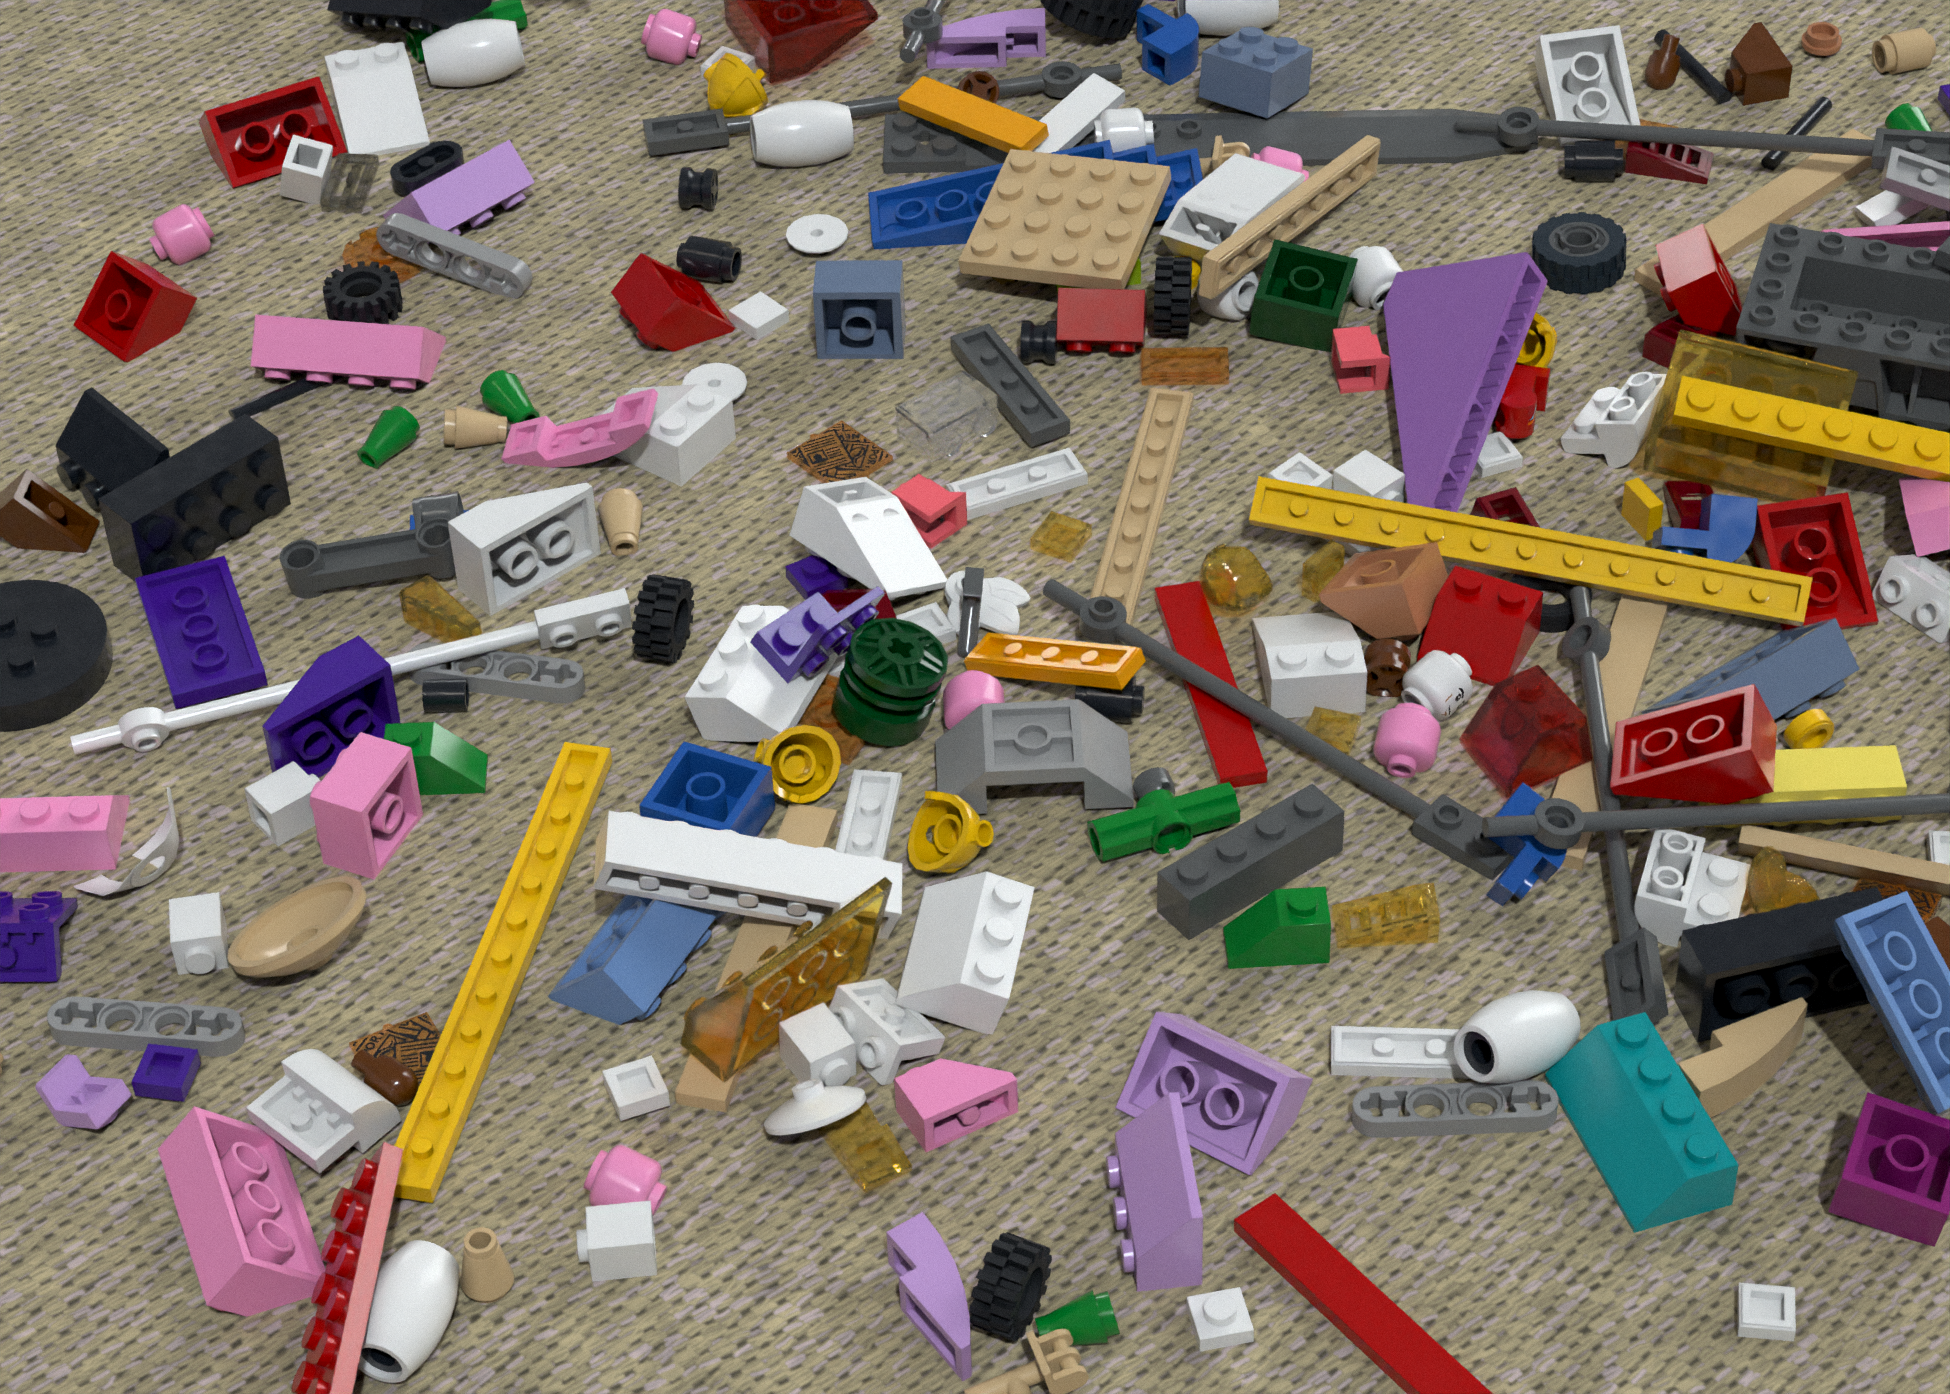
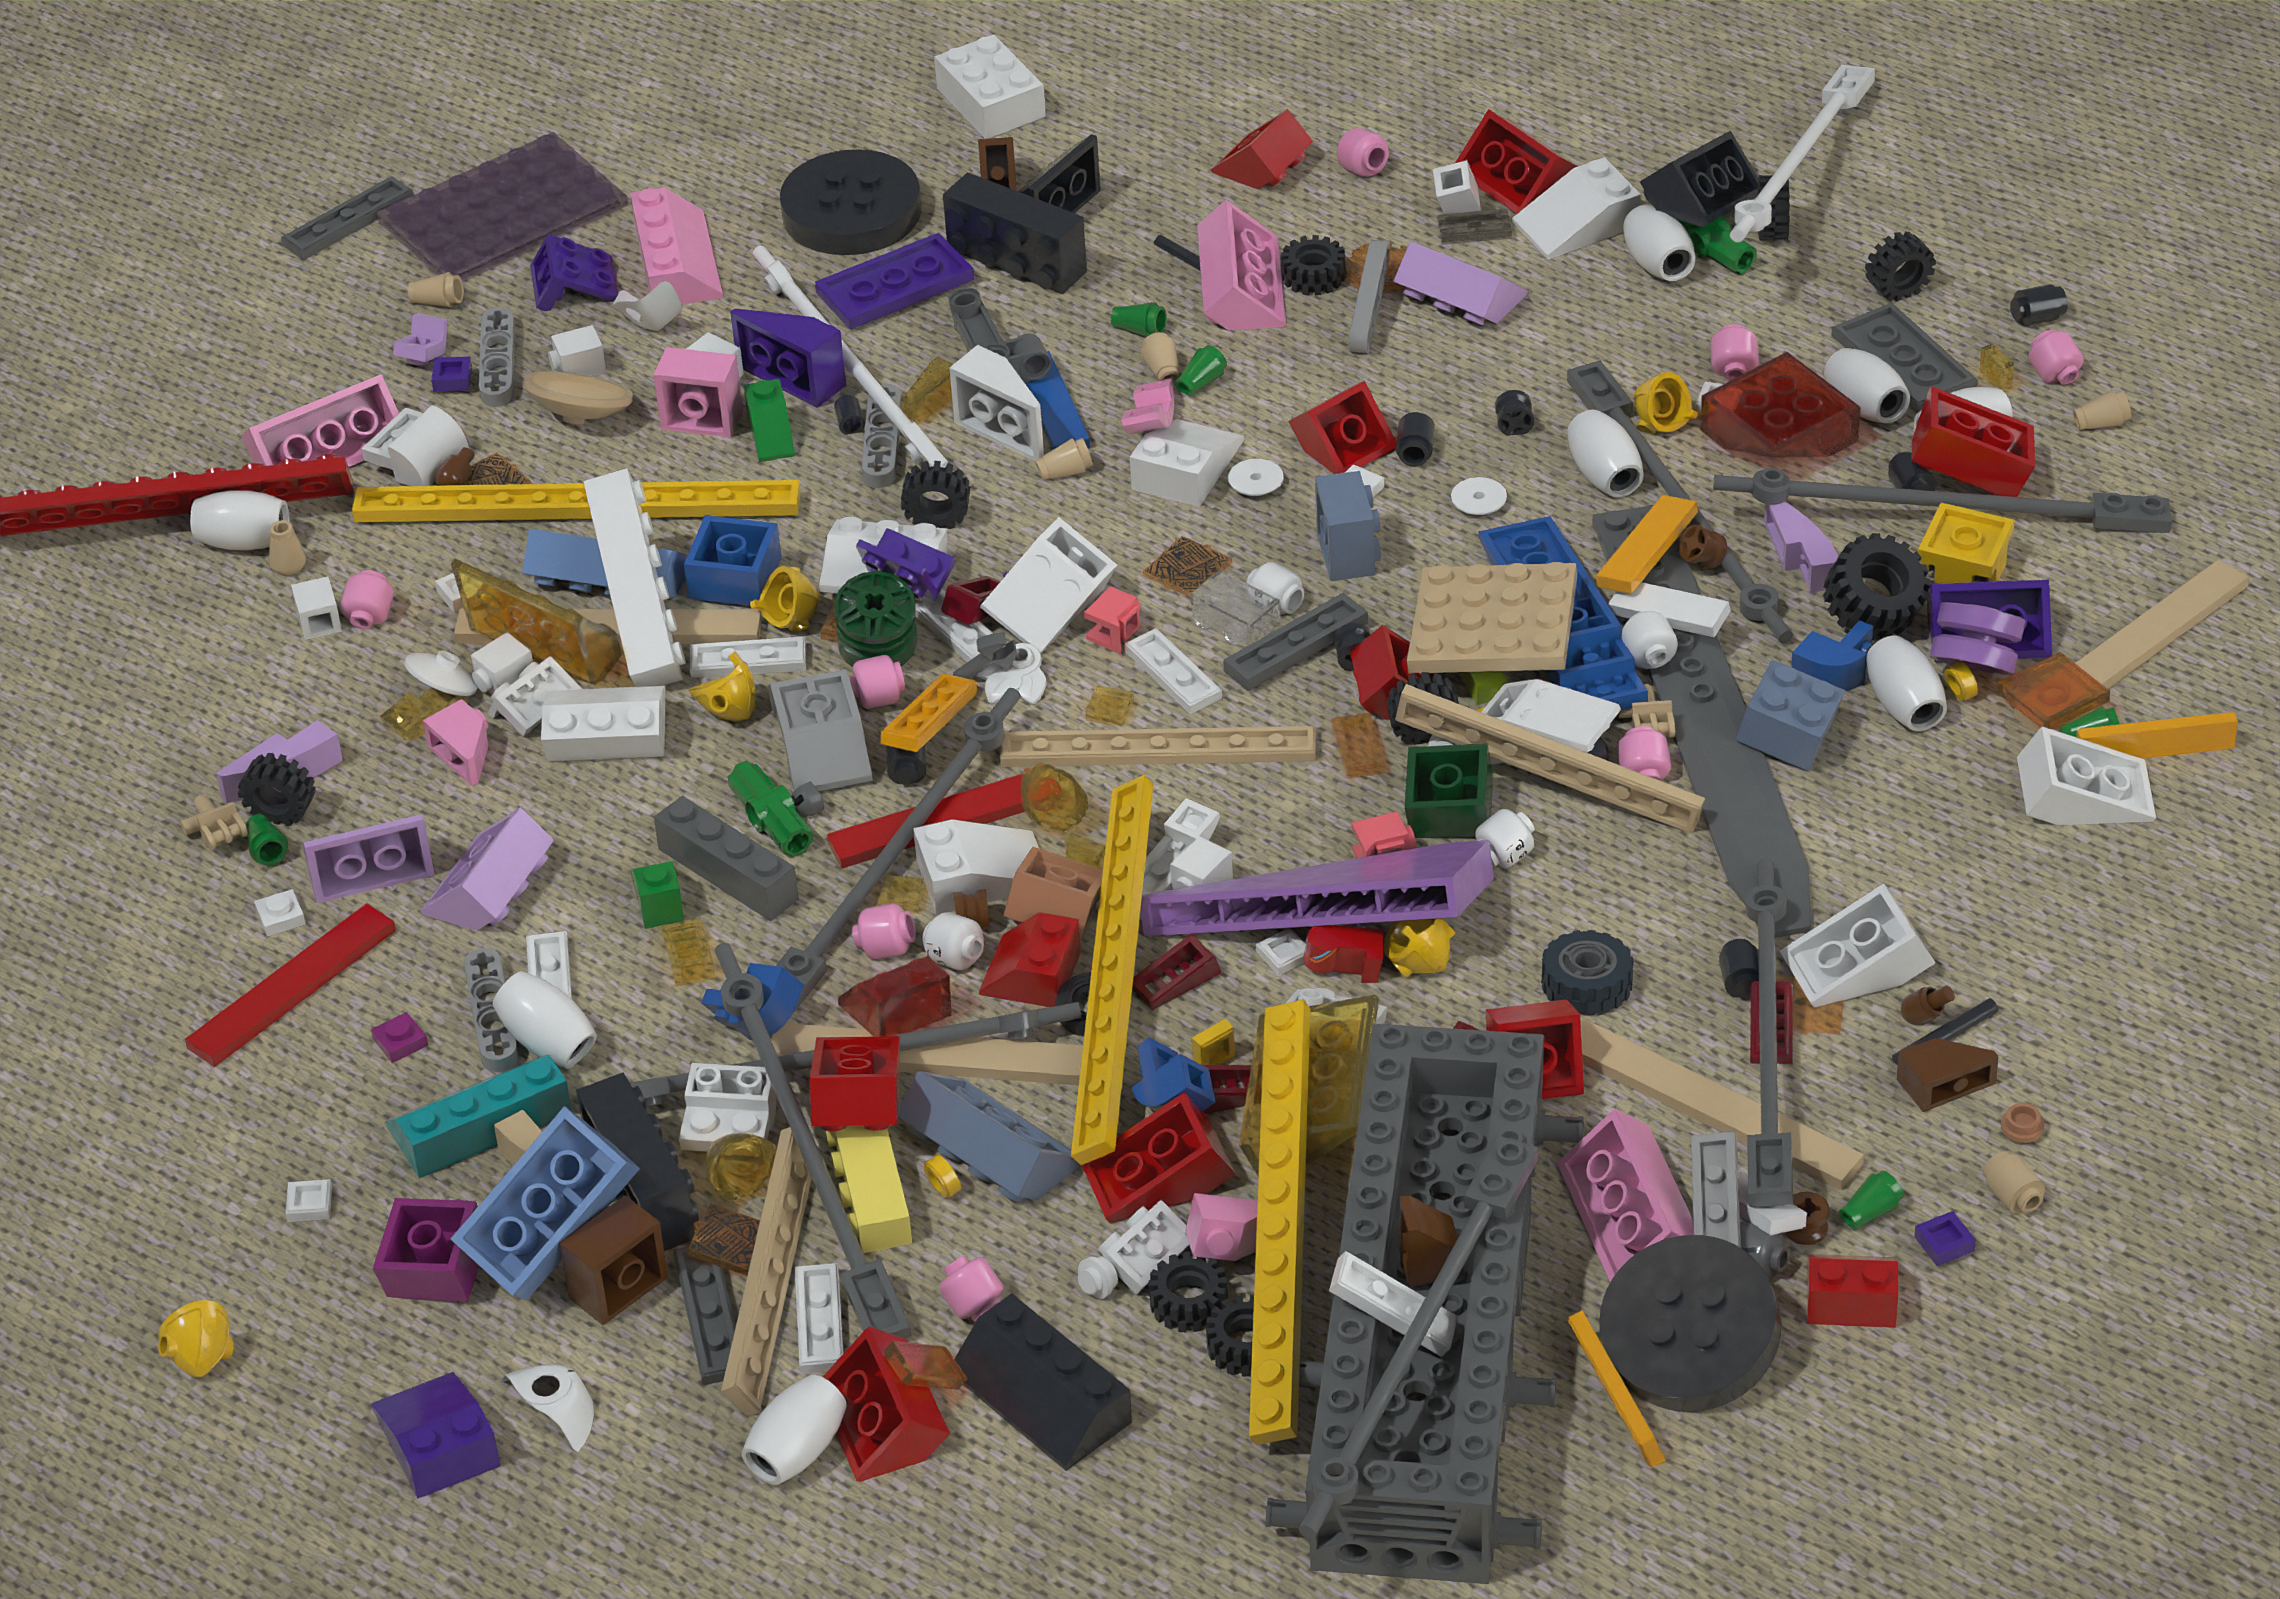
camera: 80 degrees right, 0 degrees up
(425, 166) = (1500, 259): black plate -> none
(915, 379) = (1279, 583): none -> white head
(1485, 1204) = (399, 1037): none -> magenta plate
(1801, 127) = (1852, 1119): black bar -> none

